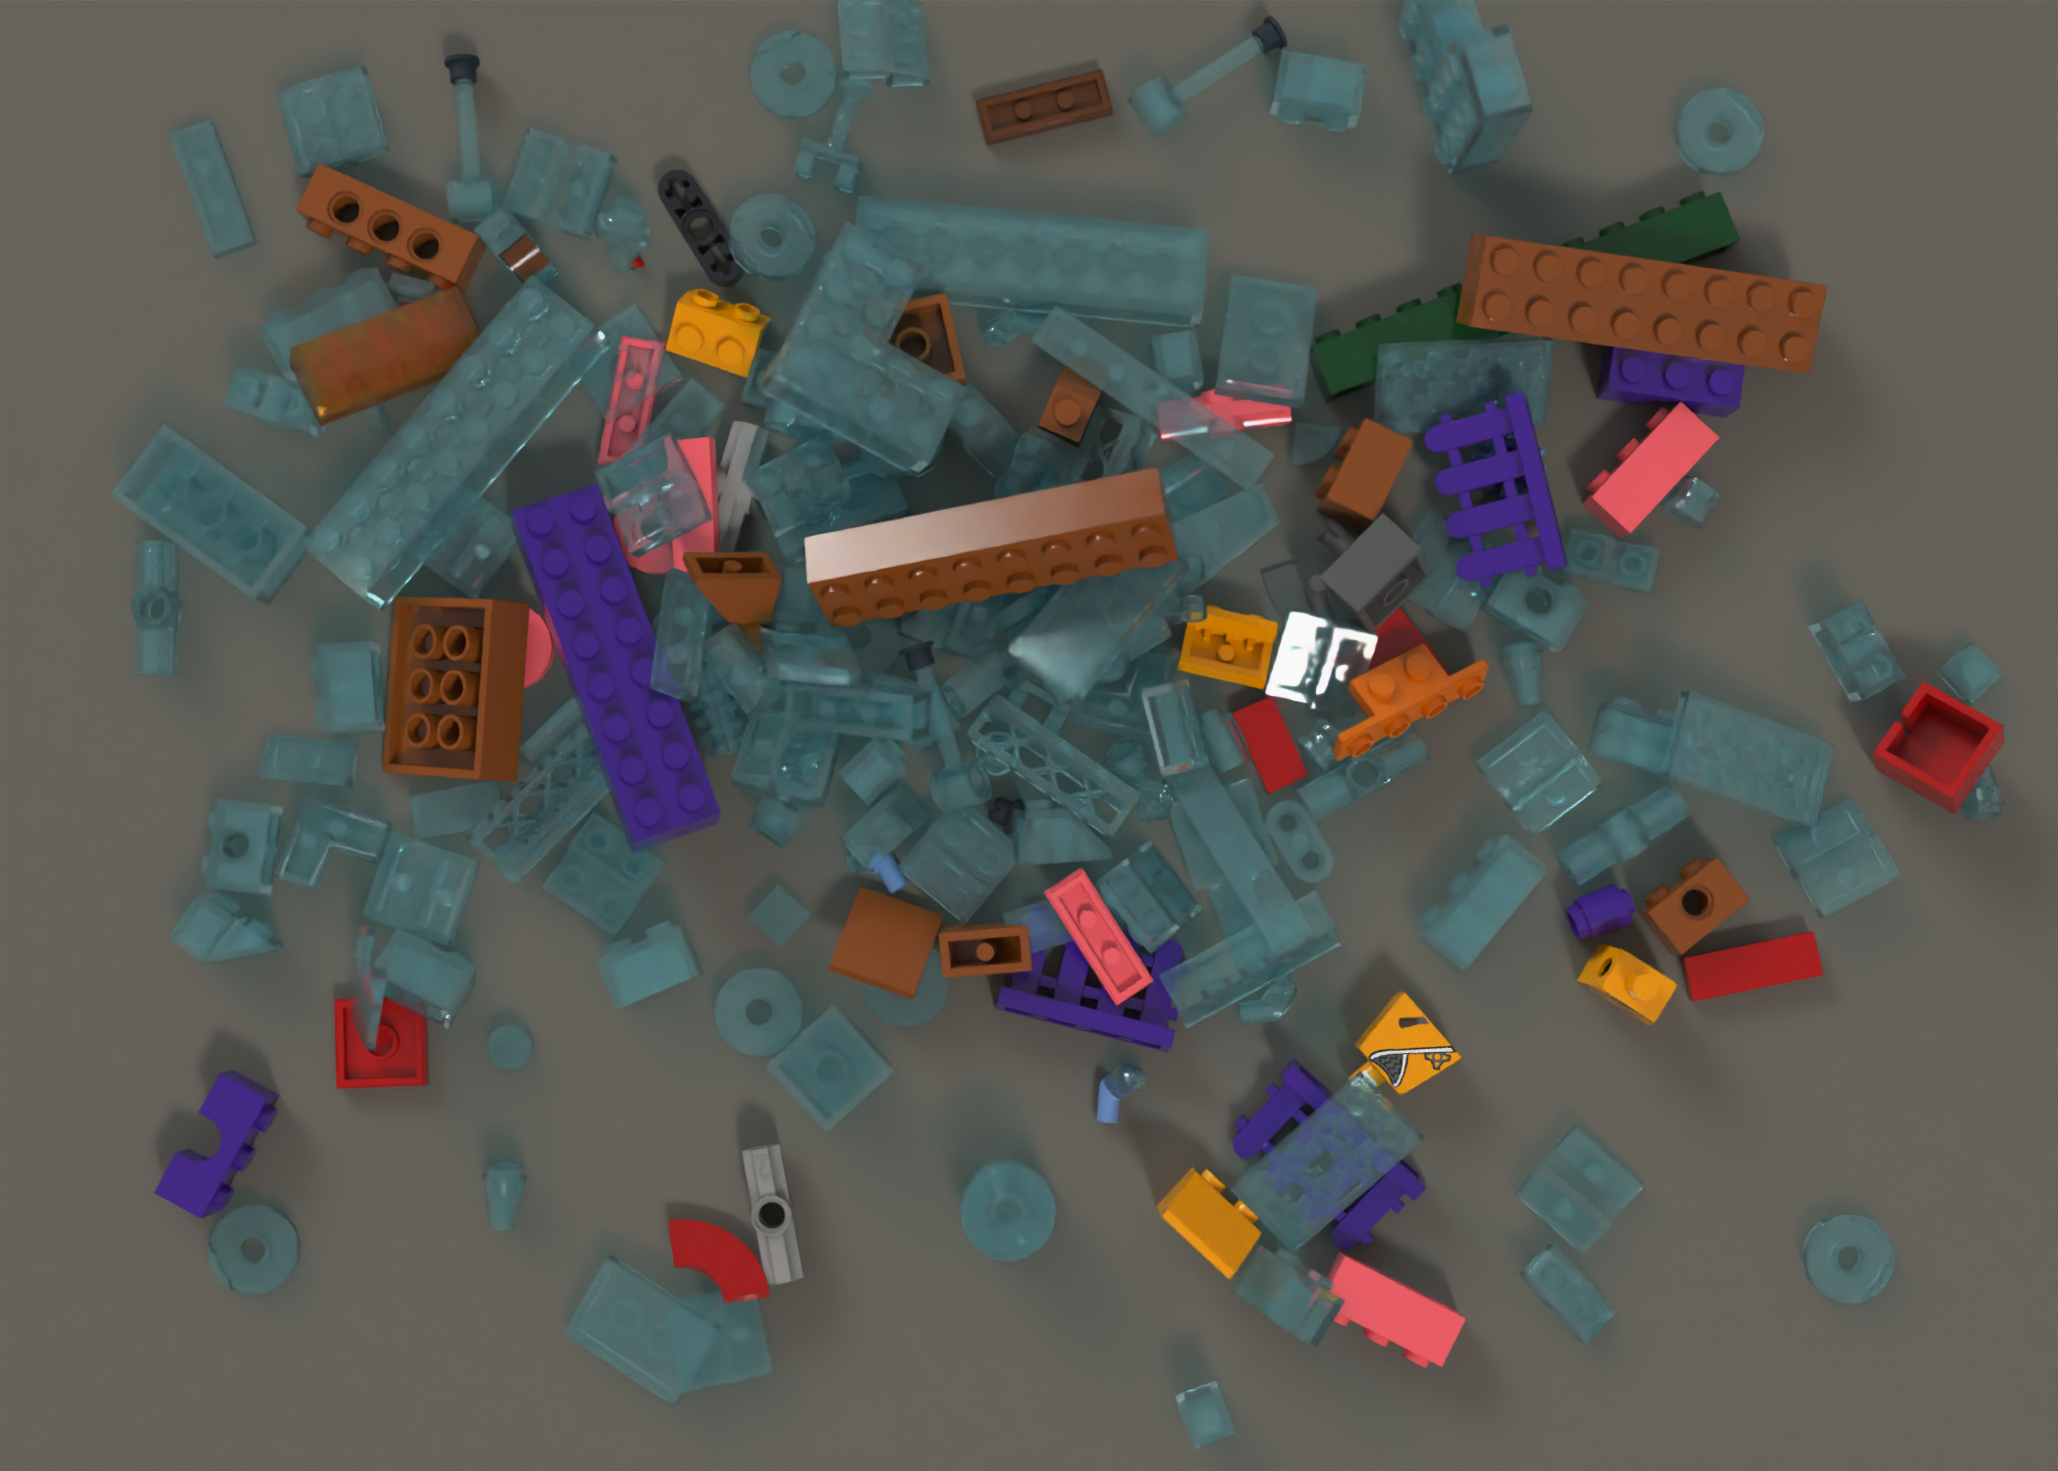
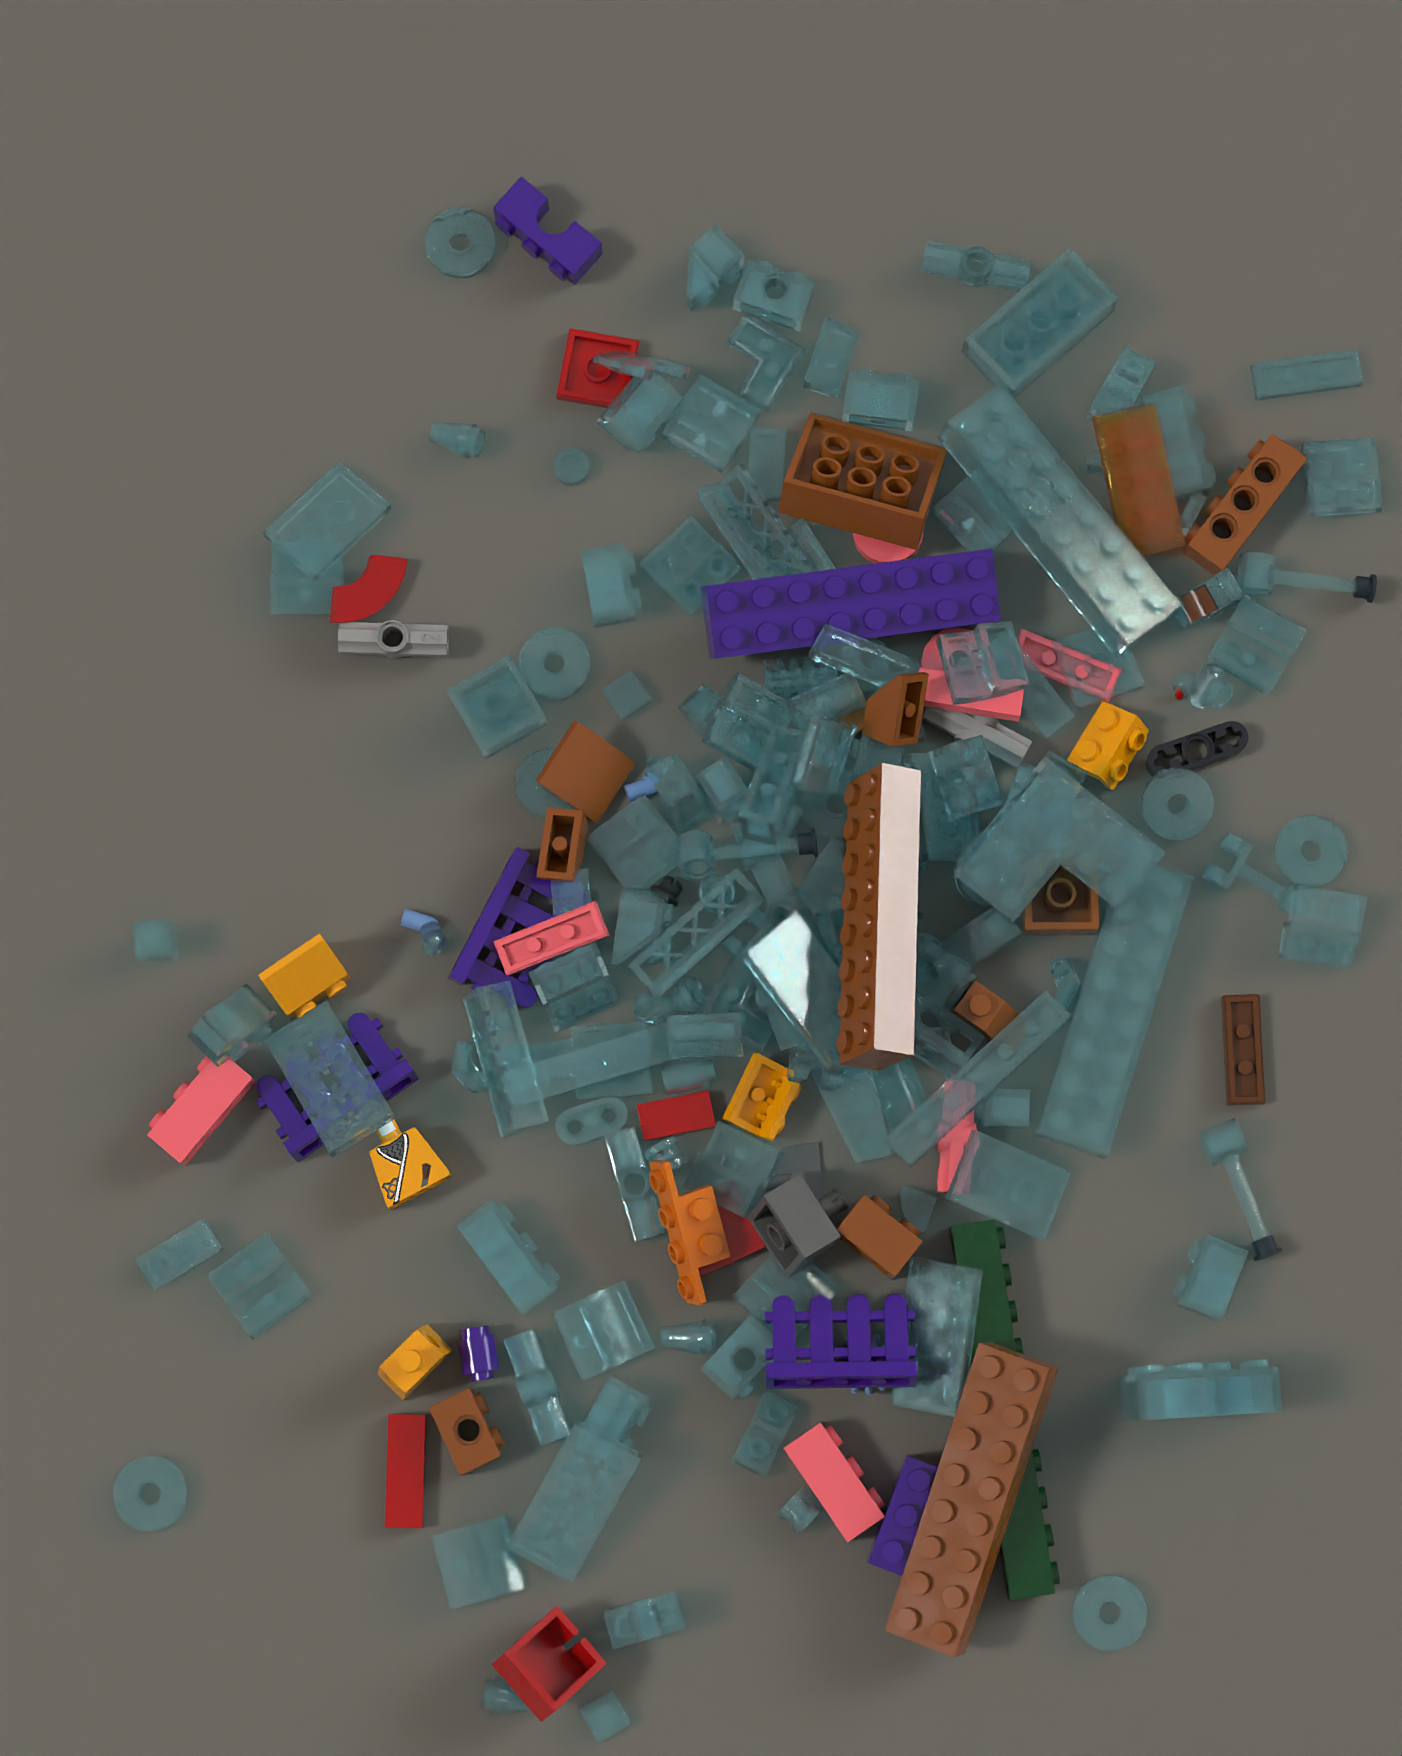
camera: 110 degrees right, 5 degrees down
(1008, 1209) = (353, 820): clear light blue wheel -> none

